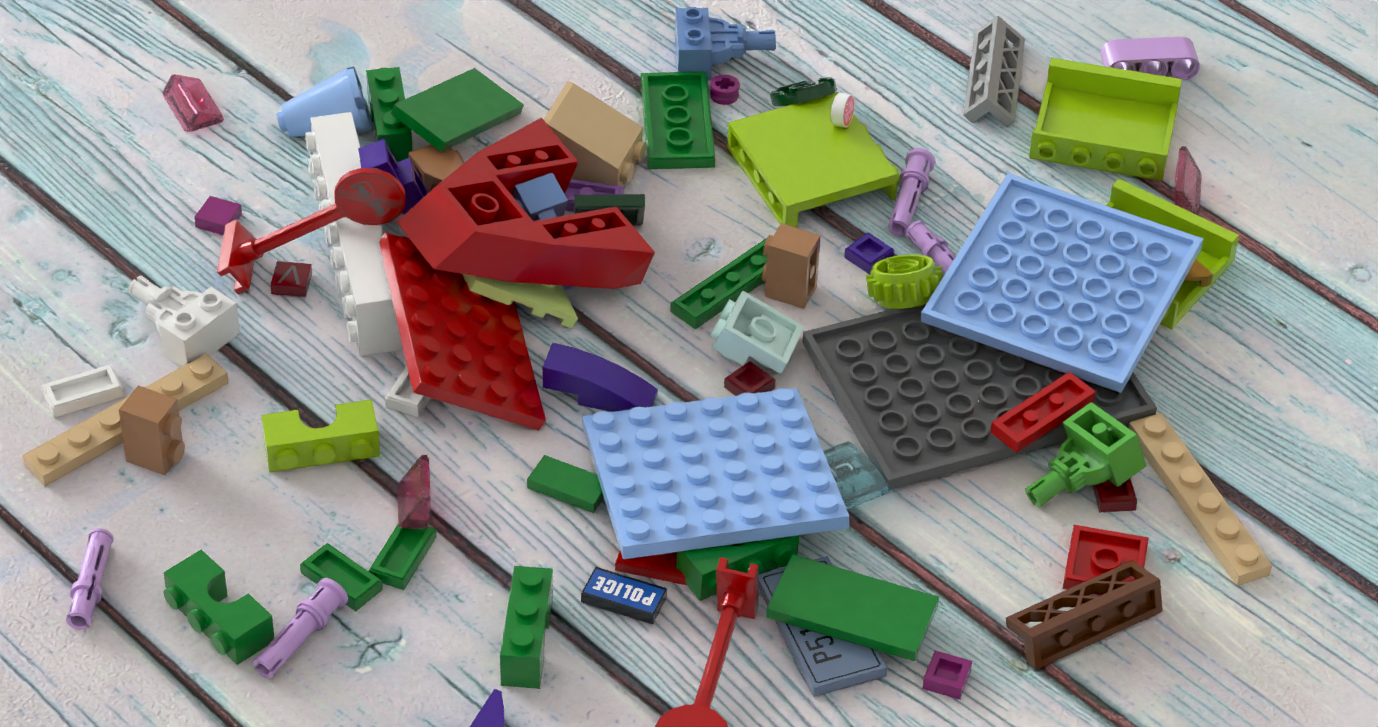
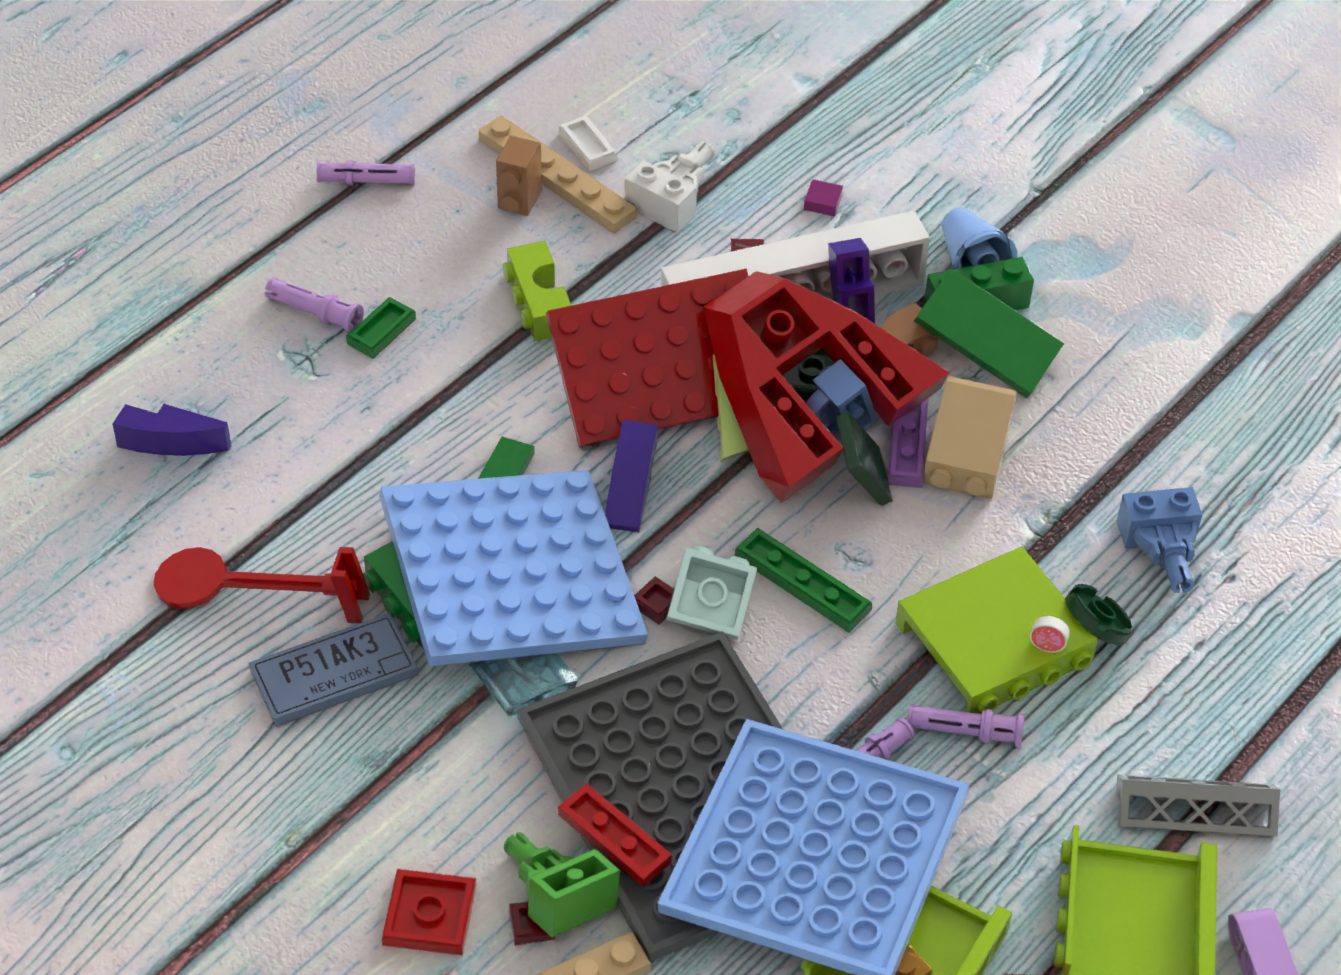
camera: 85 degrees right, 5 degrees up
(191, 103) = (976, 162): clear pink slope -> none
(233, 627) = (350, 233): green arch -> none
(360, 195) = (767, 212): red piece -> none
(402, 555) = (410, 364): green tile -> none
(415, 496) = (468, 360): clear pink slope -> none
(525, 627) = (335, 440): green arch -> none
(624, 595) = (363, 521): tile -> none
(677, 120) = (1046, 520): green tile -> none
(723, 96) = (1097, 562): magenta bush -> none
(791, 265) = (805, 609): medium nougat brick -> none
(852, 607) = (342, 685): green tile -> none
(867, 252) = (868, 694): dark purple tile -> none
(903, 281) = (807, 708): lime gear -> none
(947, 674) = (272, 773): magenta tile -> none
(1092, 617) = (335, 891): reddish brown fence -> none

